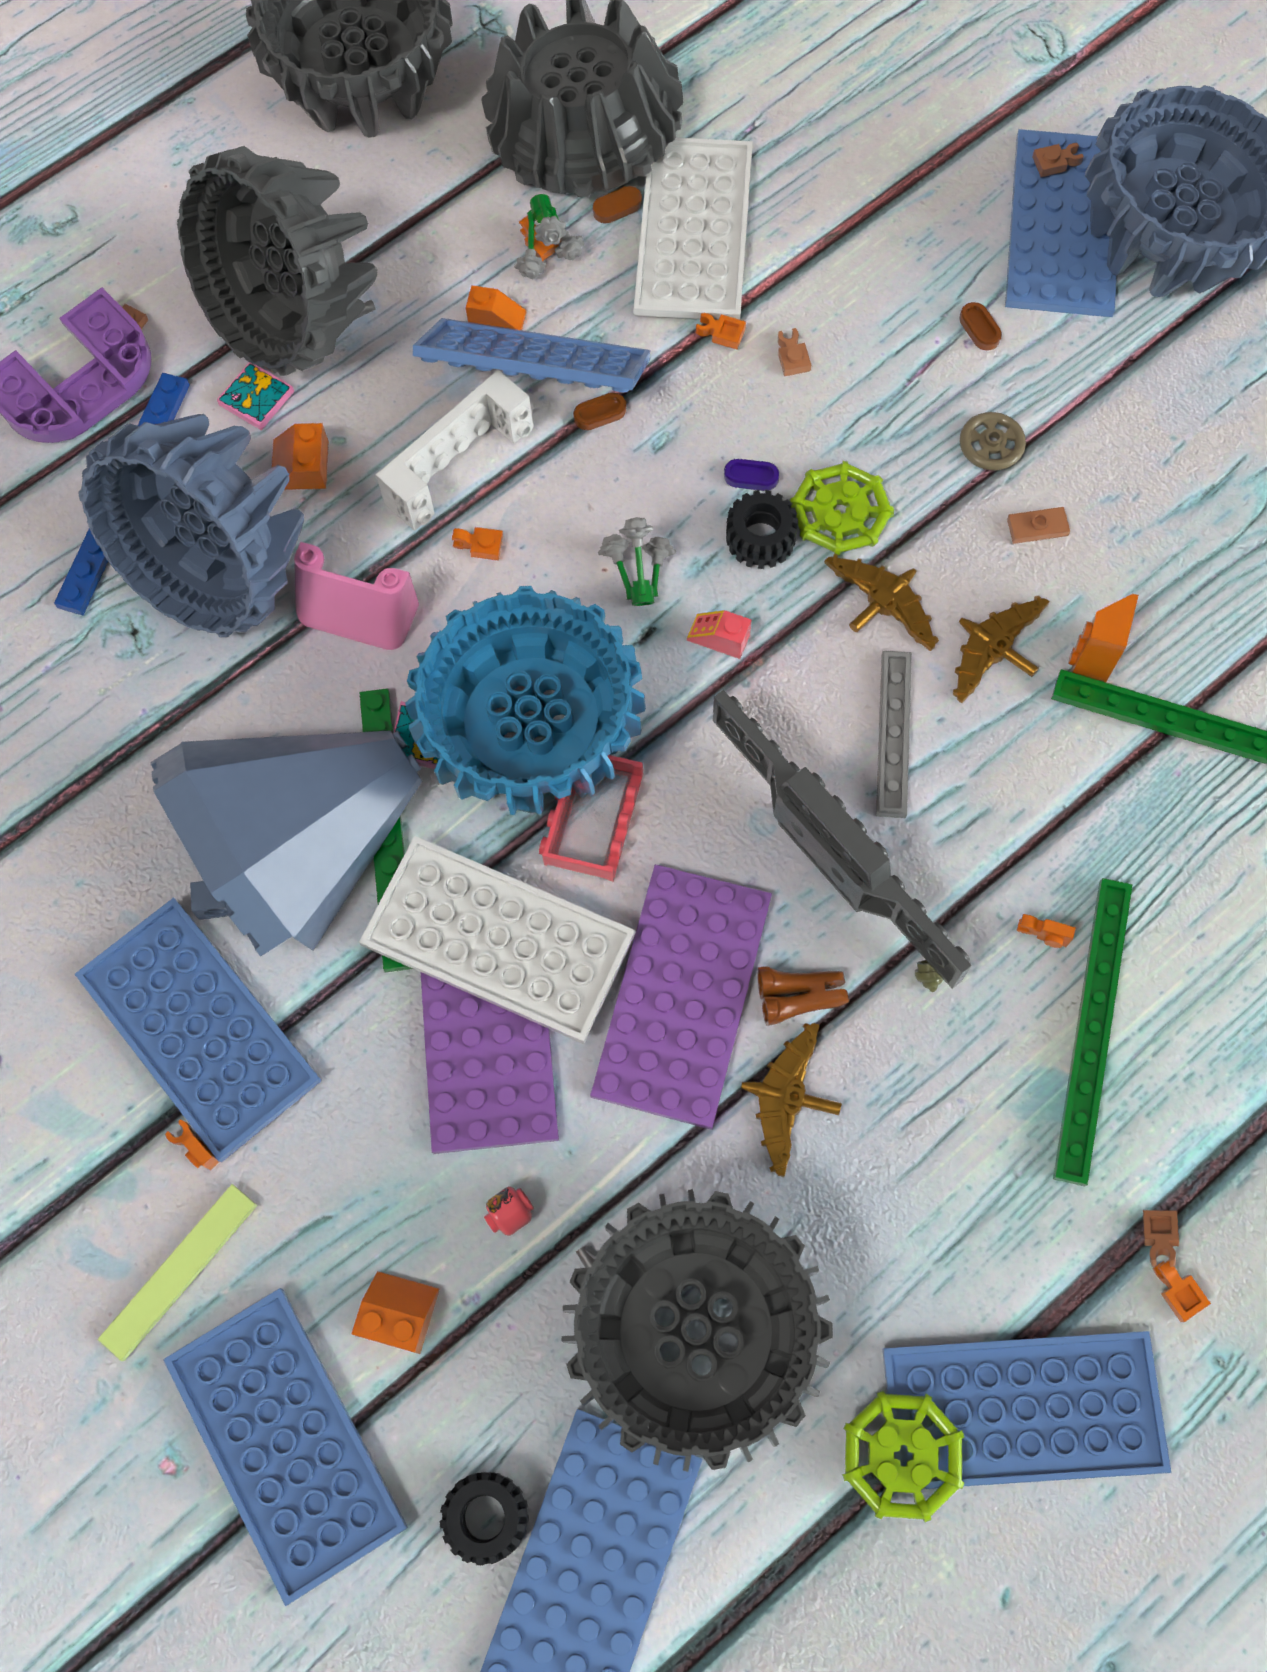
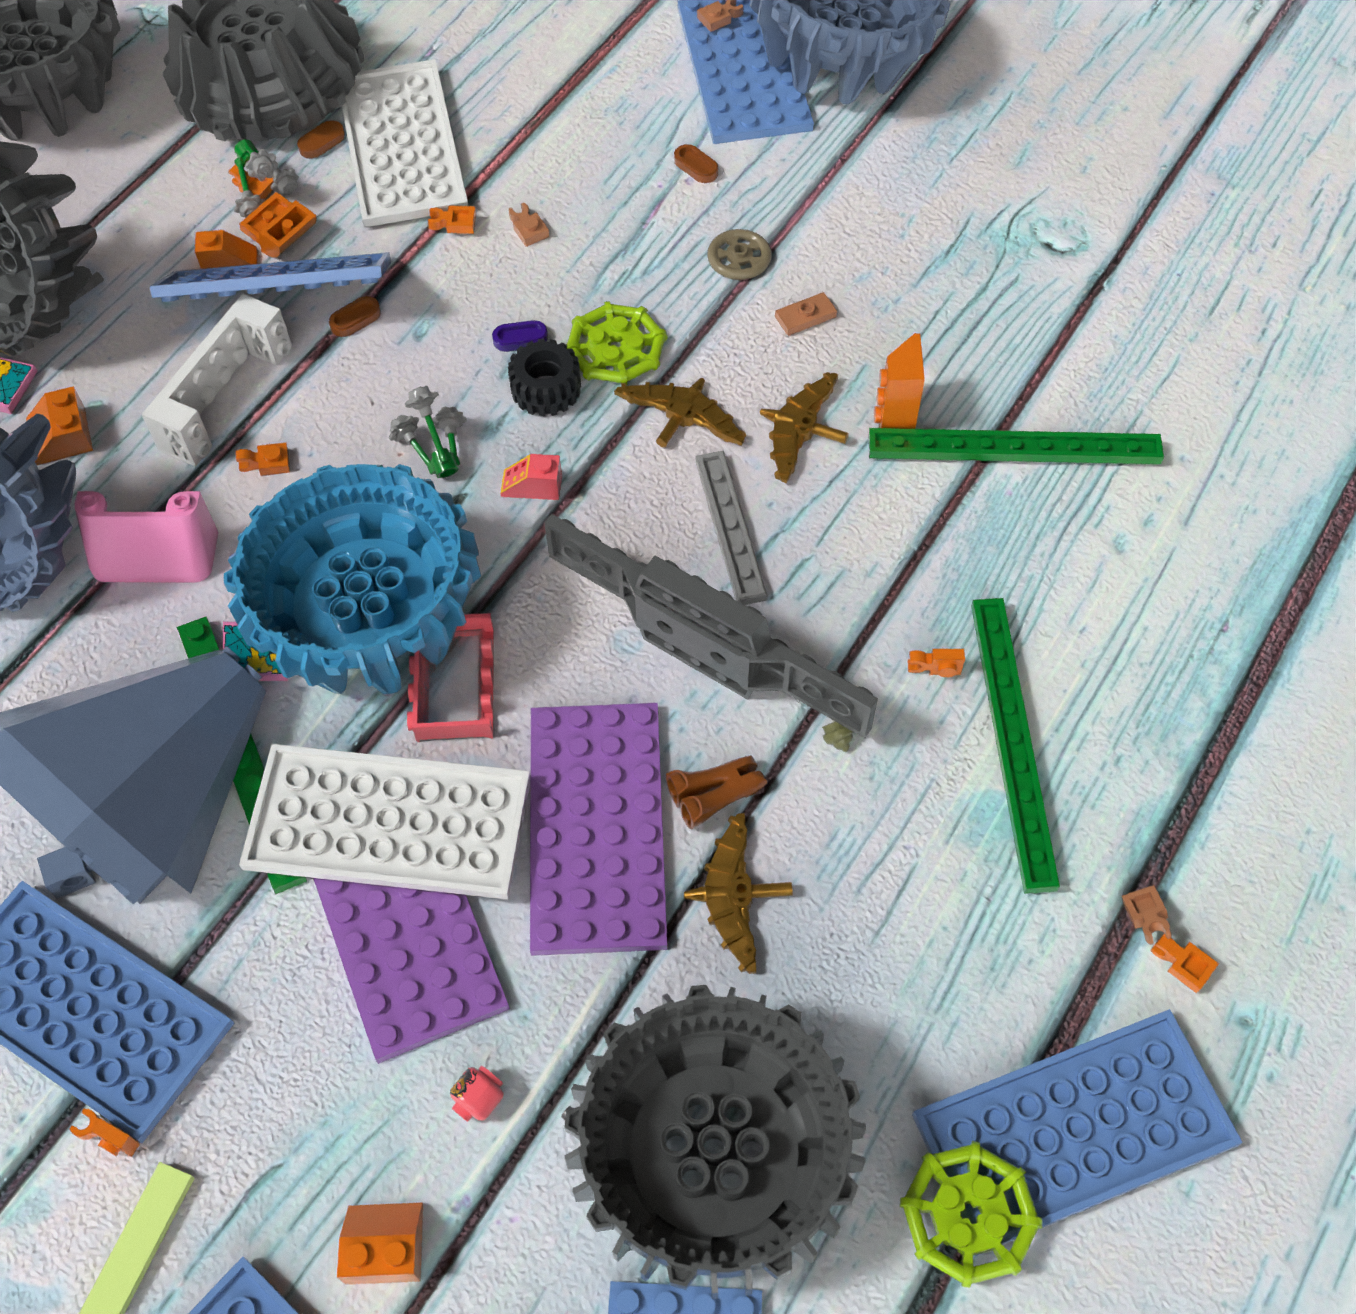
camera: 20 degrees left, 10 degrees down
(551, 293) = (277, 224): none -> orange brick

